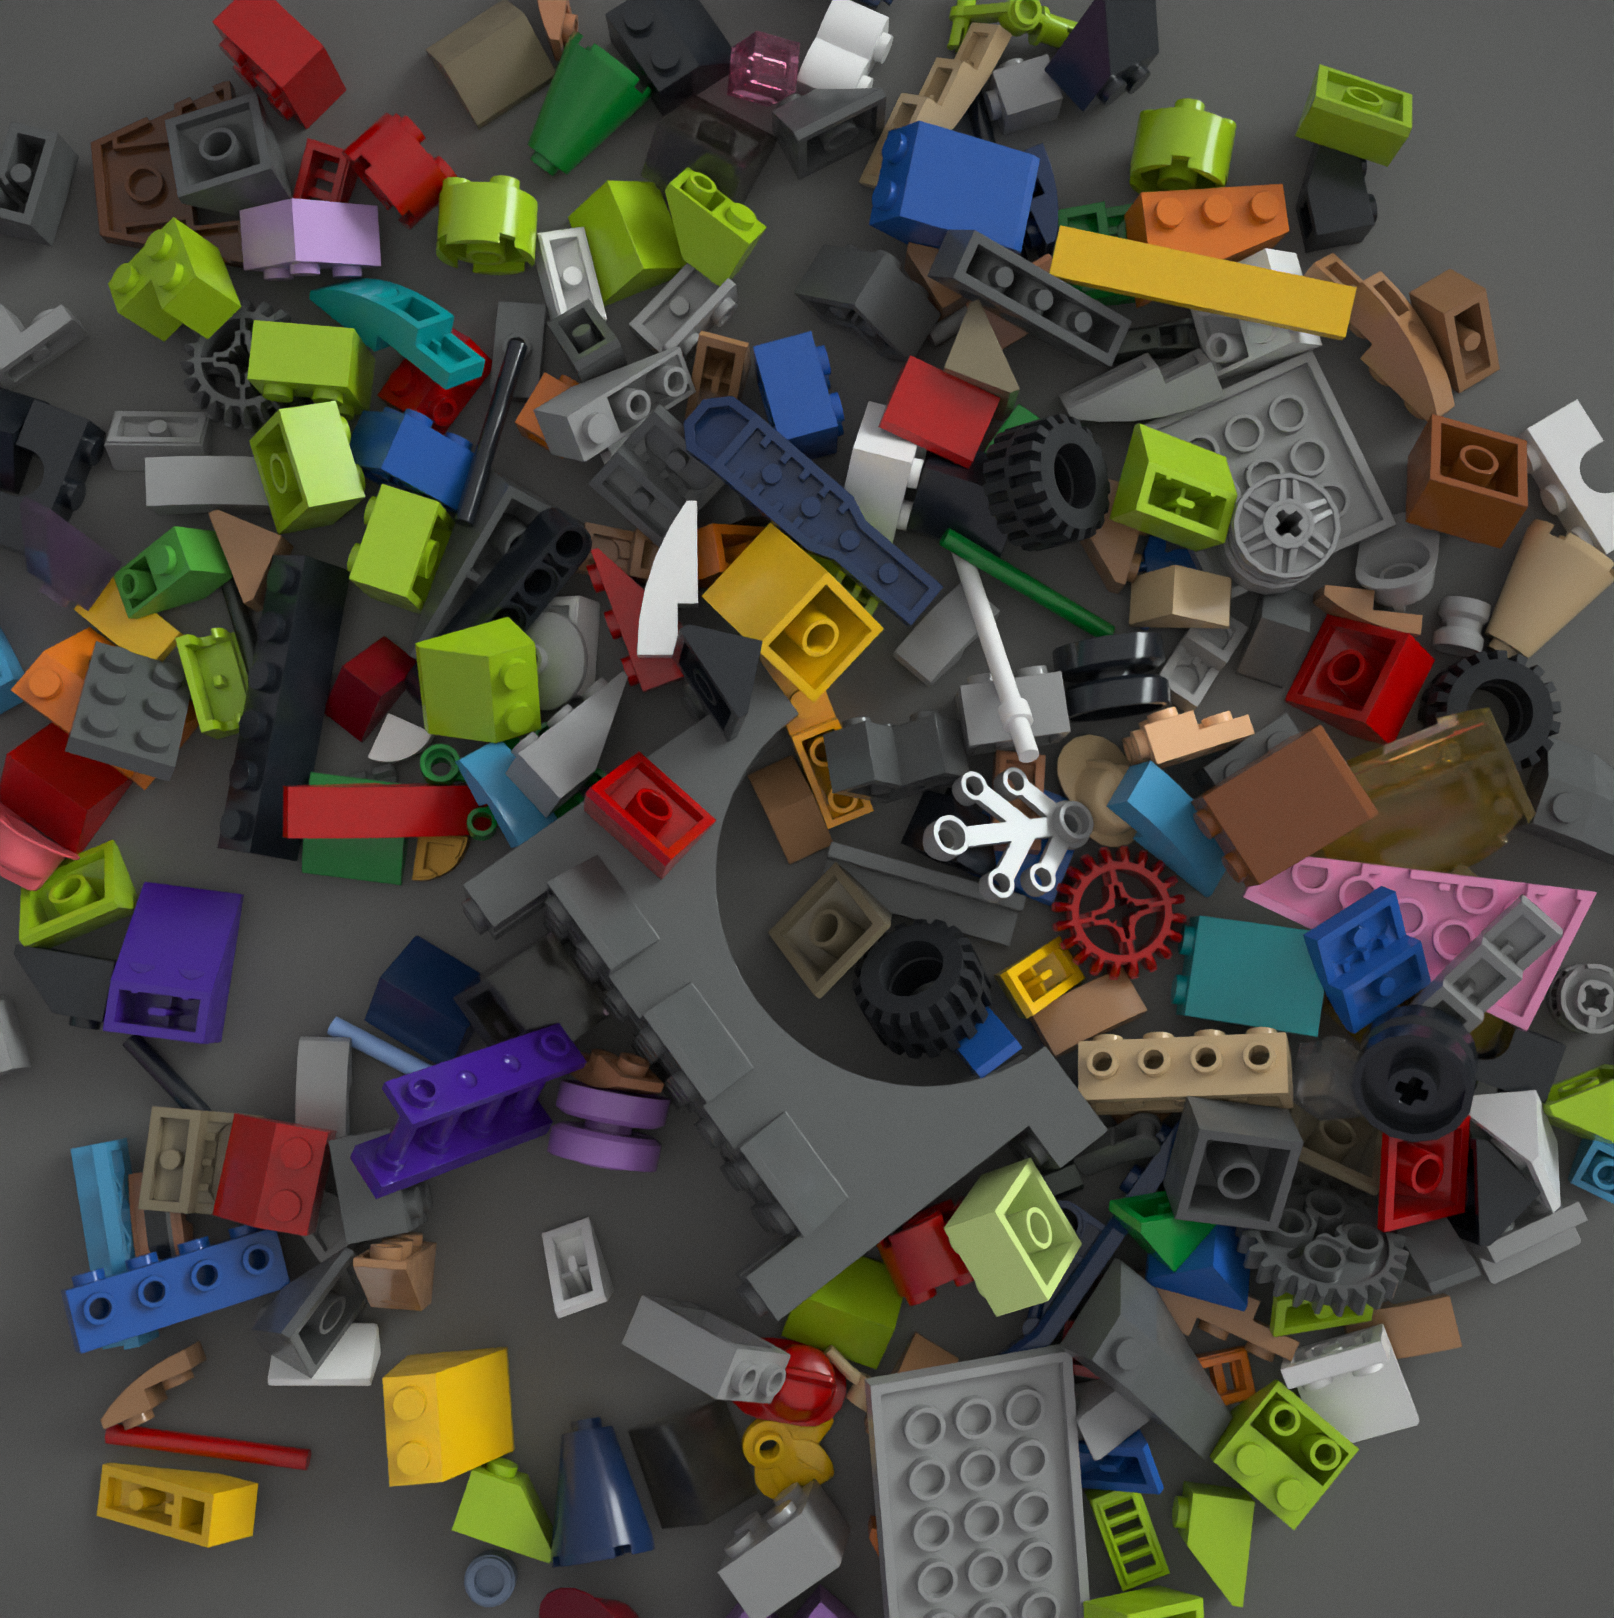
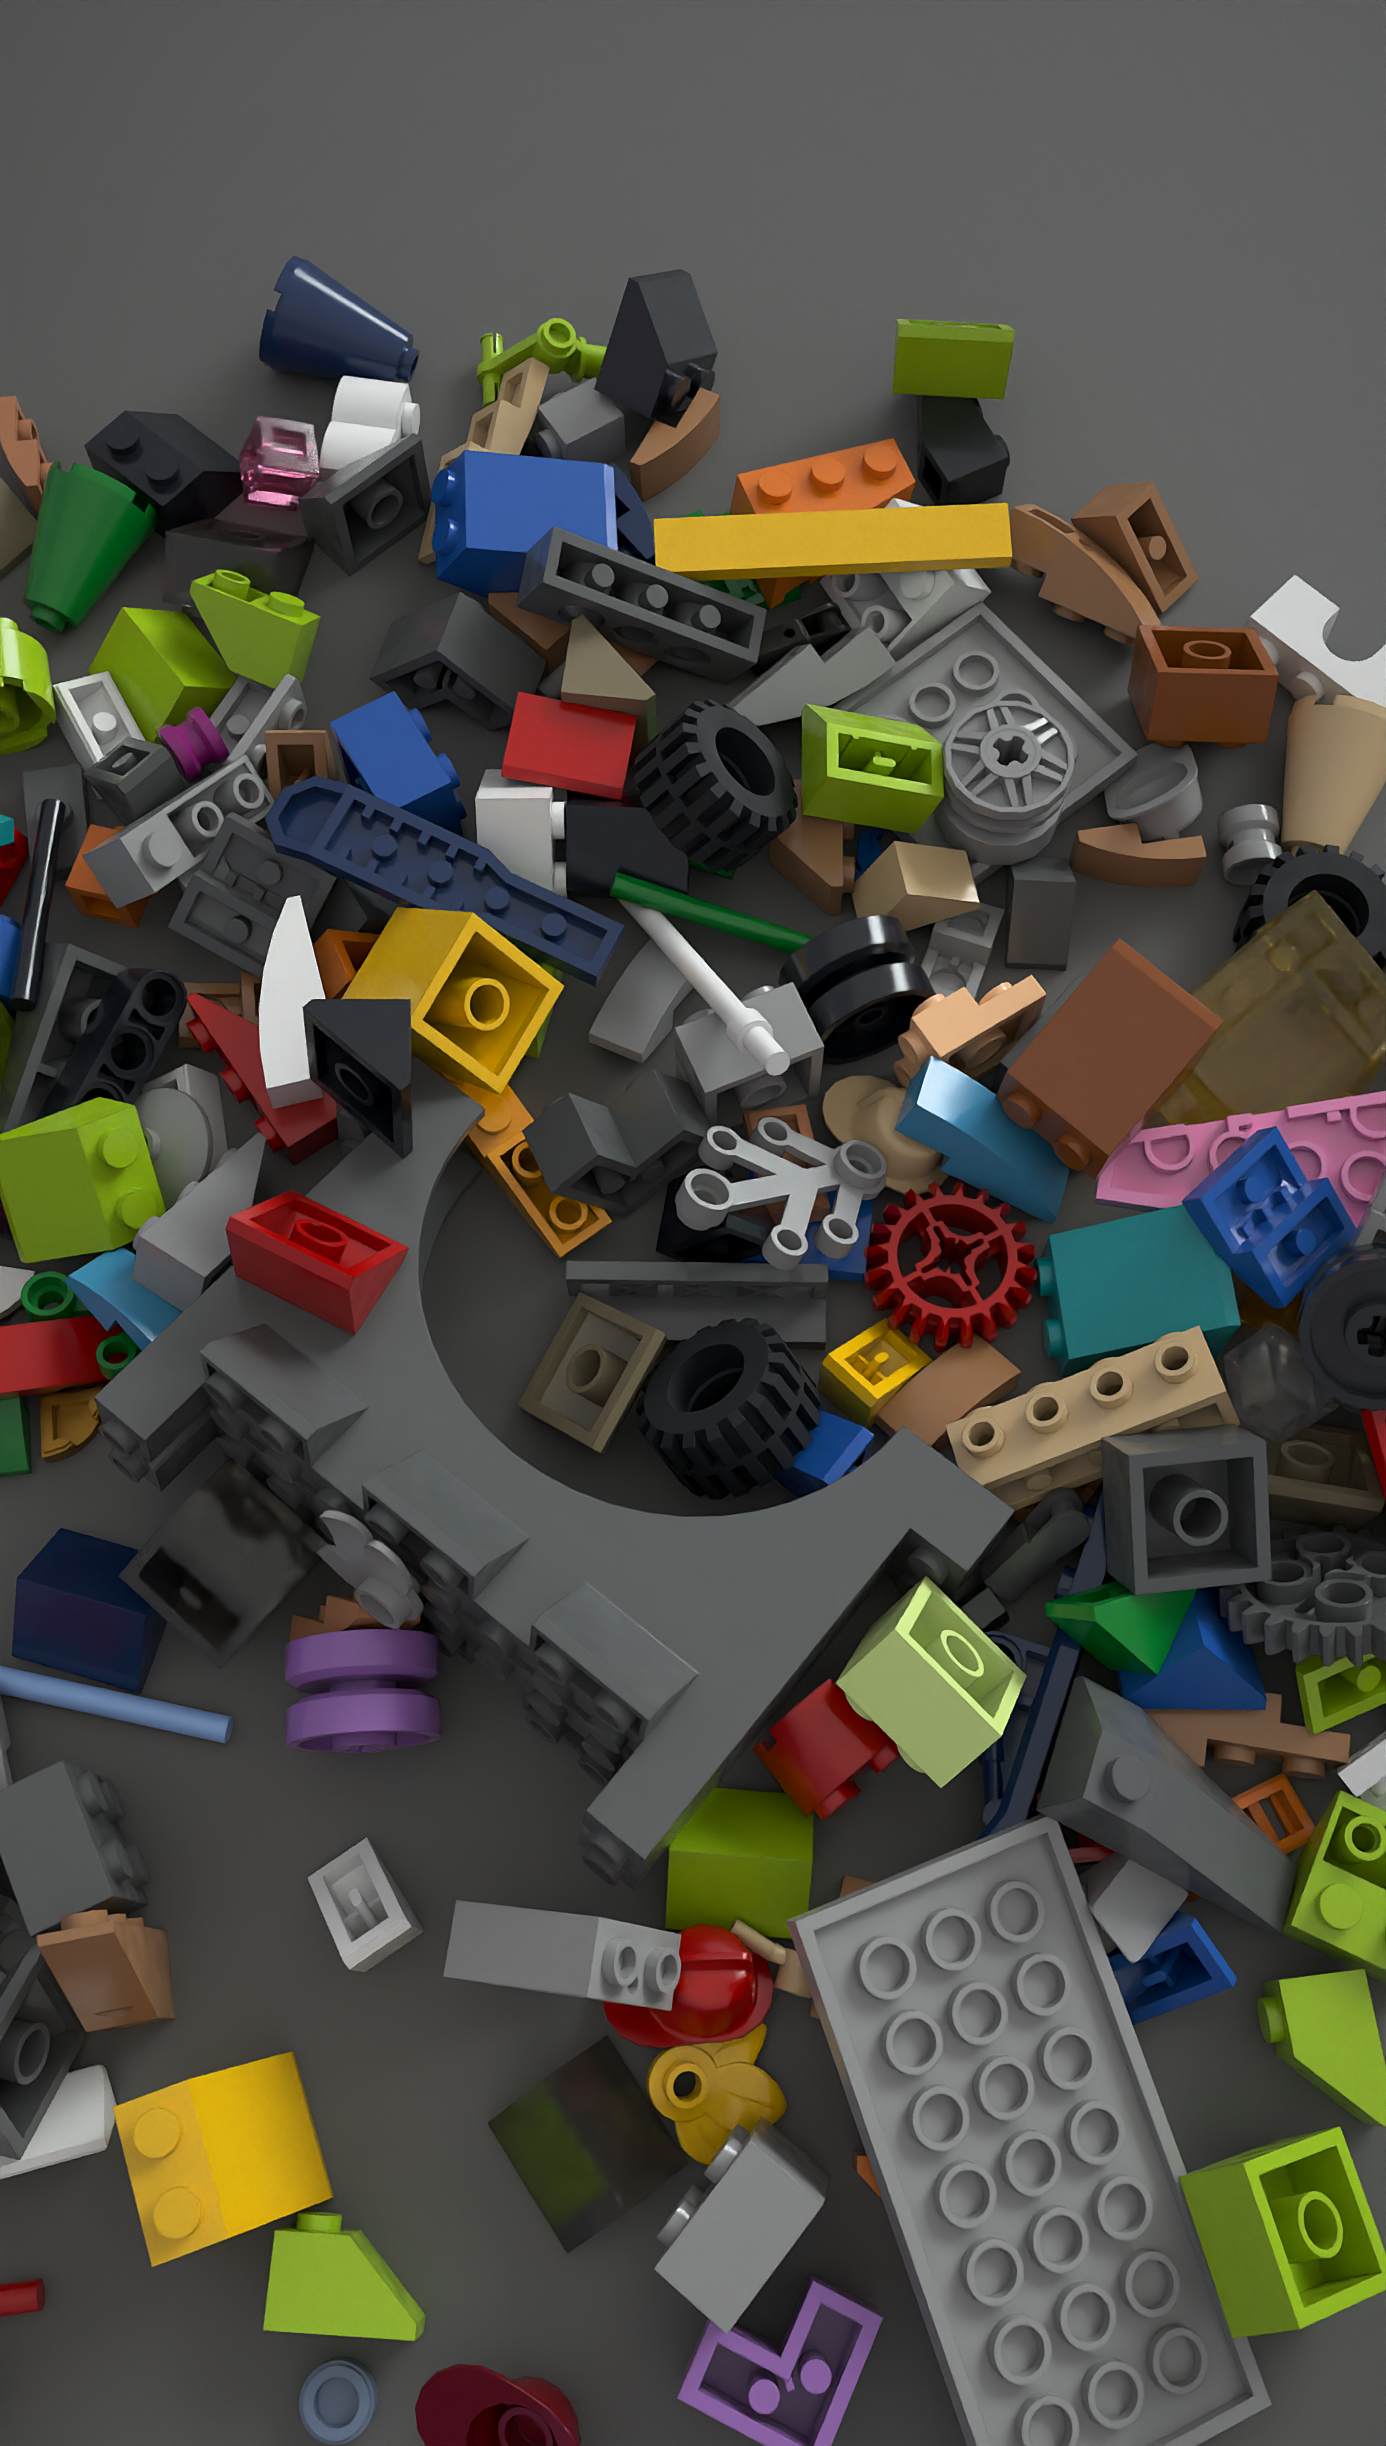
camera: 15 degrees left, 15 degrees down
(466, 1109) = (178, 1747): dark purple fence -> none
(596, 1499) = (462, 2232): dark blue cone -> none
(640, 322) = (193, 744): none -> magenta wheel
(642, 1073) = (373, 1568): none -> light grey plate
(791, 809) = (510, 1252): medium nougat slope -> none
(1093, 137) = (672, 452): none -> medium nougat slope
(1104, 1499) = (1164, 2028): lime slope -> none
(1181, 148) = (769, 424): lime brick -> none
(1361, 678) = (1163, 909): red slope -> none

